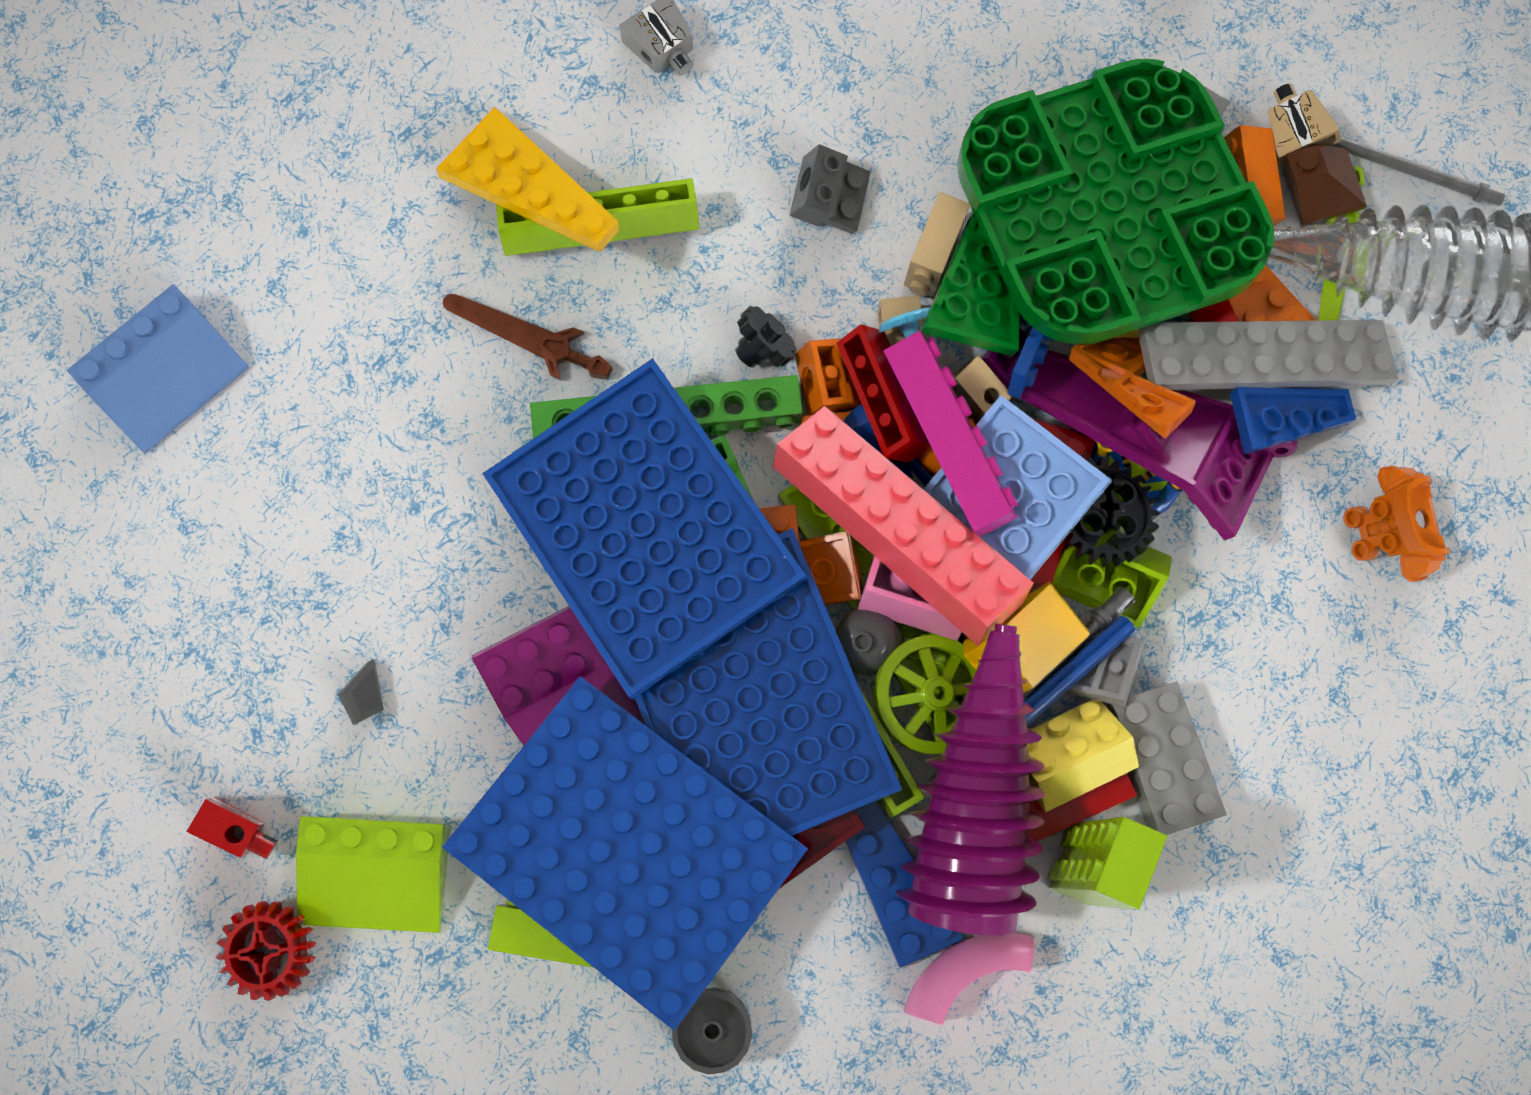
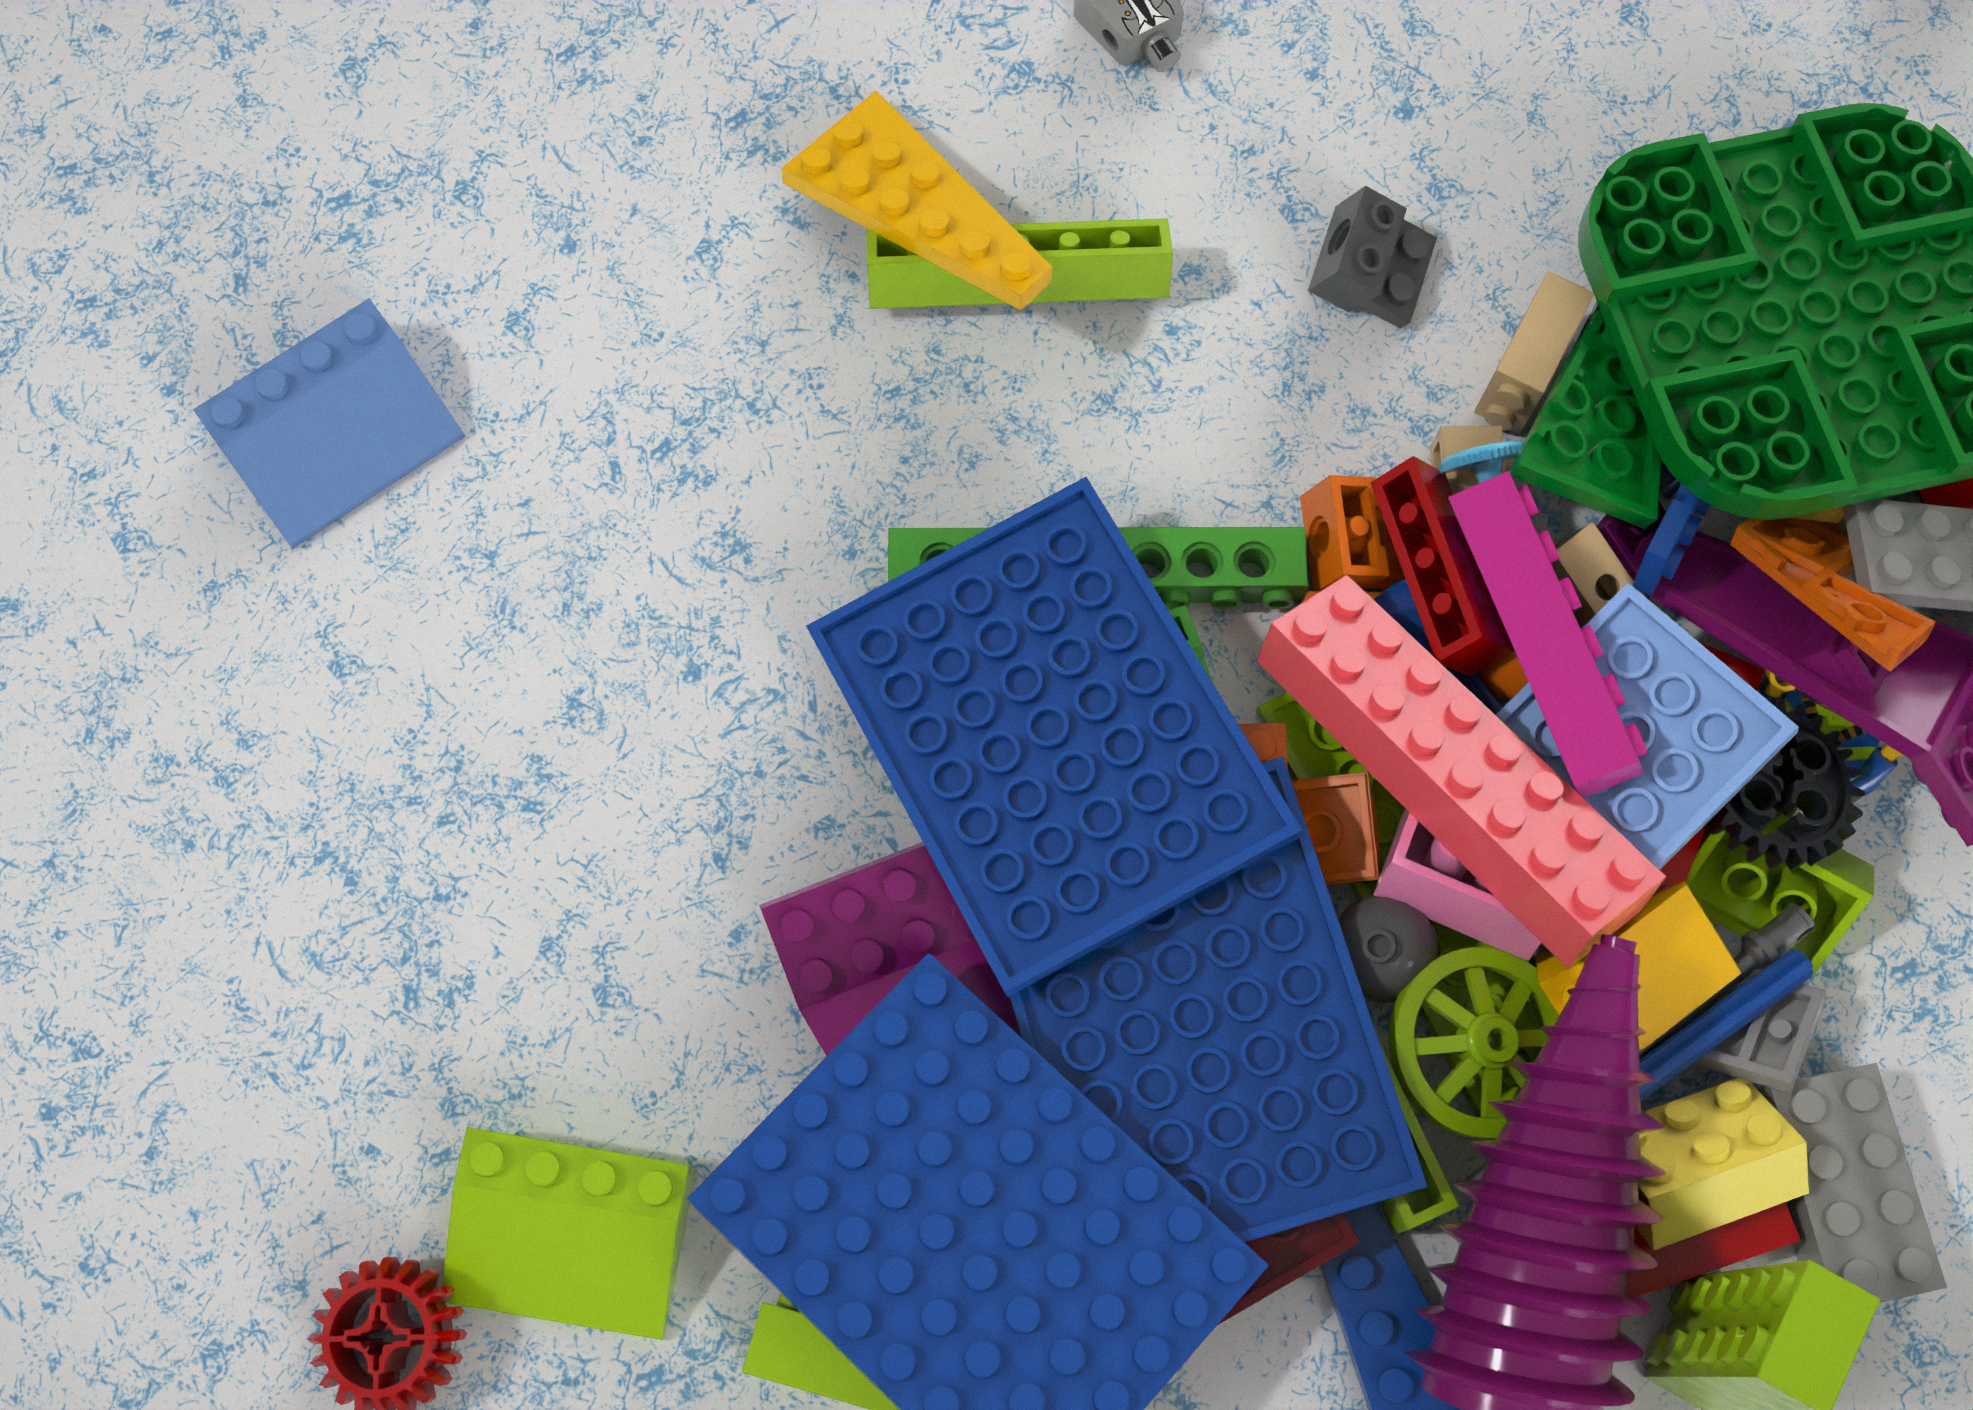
camera: 10 degrees right, 5 degrees down
(216, 825) = (336, 1122): red torso -> none
(362, 694) = (583, 948): dark grey piece -> none
(539, 341) = (924, 449): copper sword -> none
(763, 339) = (1254, 470): black plant -> none

